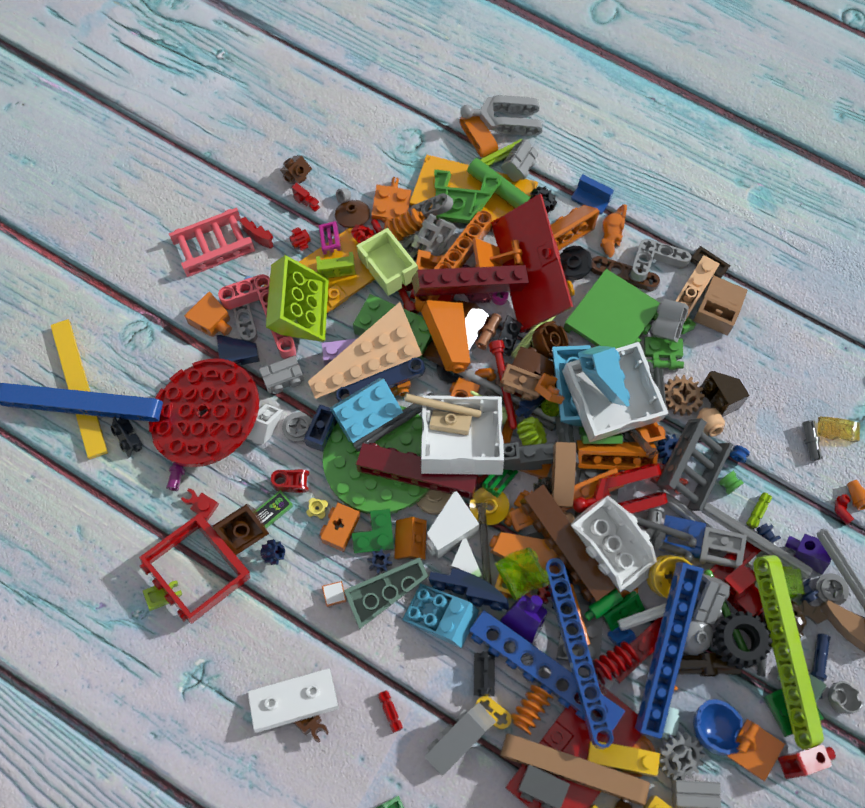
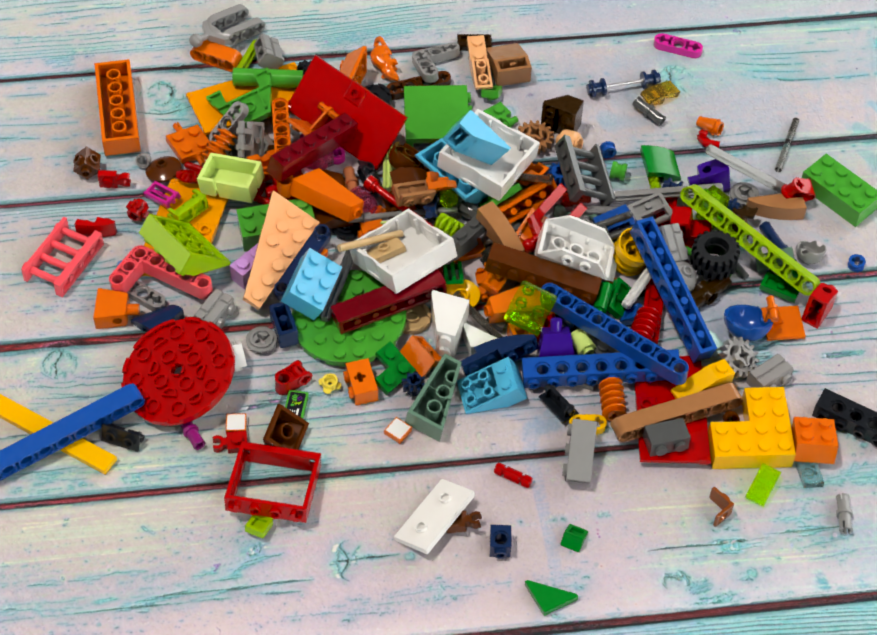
camera: 40 degrees left, 15 degrees down
(217, 489) = (236, 422): none -> white tile
(272, 552) = (324, 432): dark blue gear -> none
(334, 764) = (503, 534): none -> dark blue brick
(359, 133) = (117, 107): none -> orange brick
(479, 357) = (370, 203): none -> clear pink wheel
(551, 632) = (582, 343): none -> yellowish green brick
(592, 194) = (343, 43): blue panel -> none
(644, 486) = (560, 210): none -> sand green hinge
(670, 320) = (483, 90): light grey brick -> none
(777, 501) = (660, 162): none -> green slope
(836, 406) = (601, 86): none -> dark blue axle

